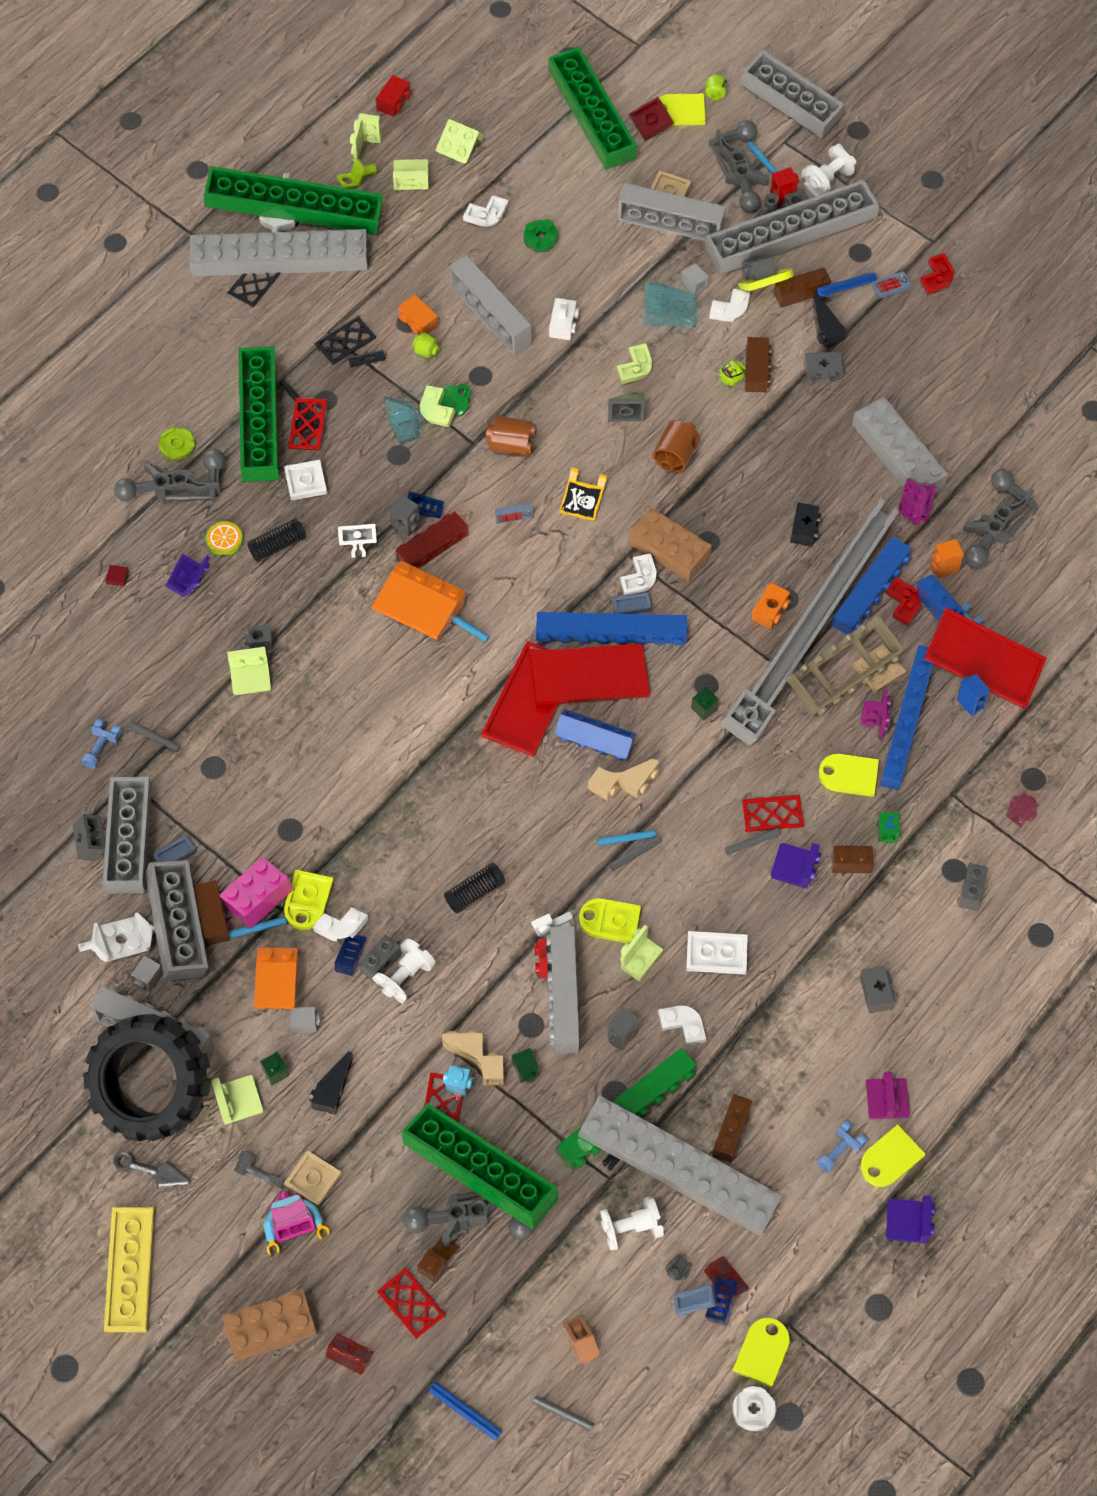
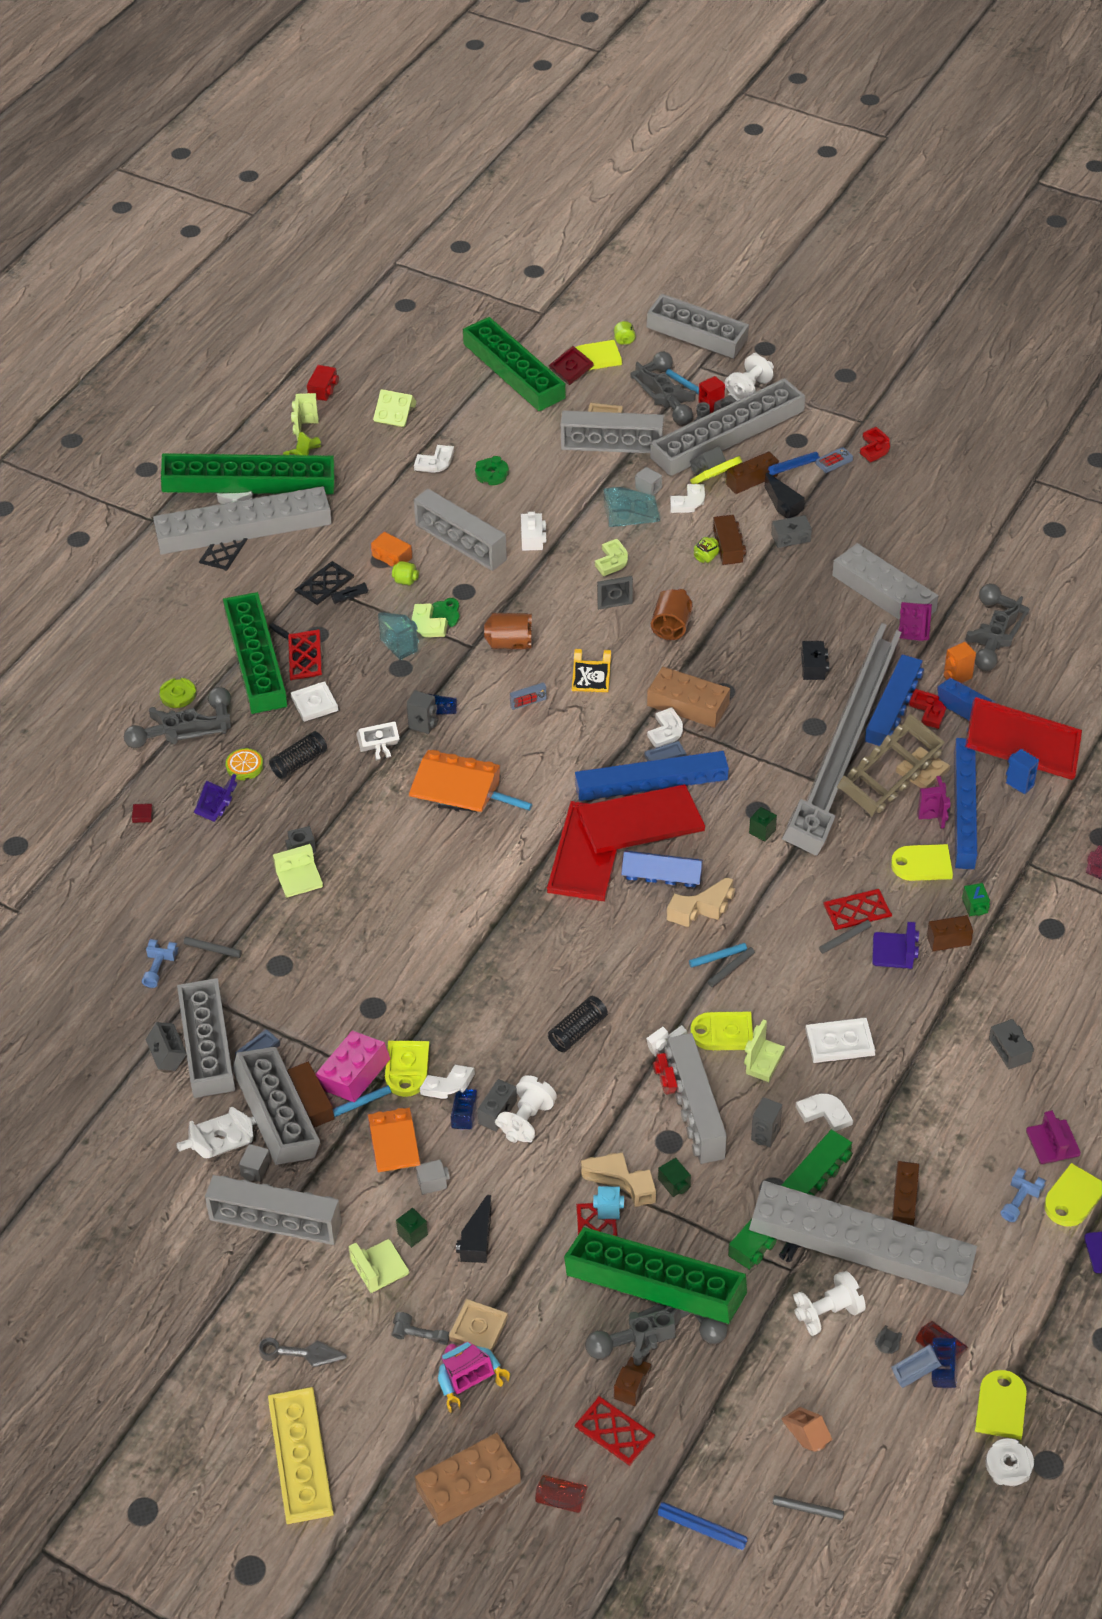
camera: 10 degrees left, 15 degrees down
(104, 1083) = (232, 1243): black tyre -> none
(410, 174) = (355, 441): yellowish green bracket -> none
(433, 541) = (456, 730): clear red brick -> none
(773, 596) = (801, 732): orange brick -> none
(973, 886) = (1076, 936): dark grey brick -> none

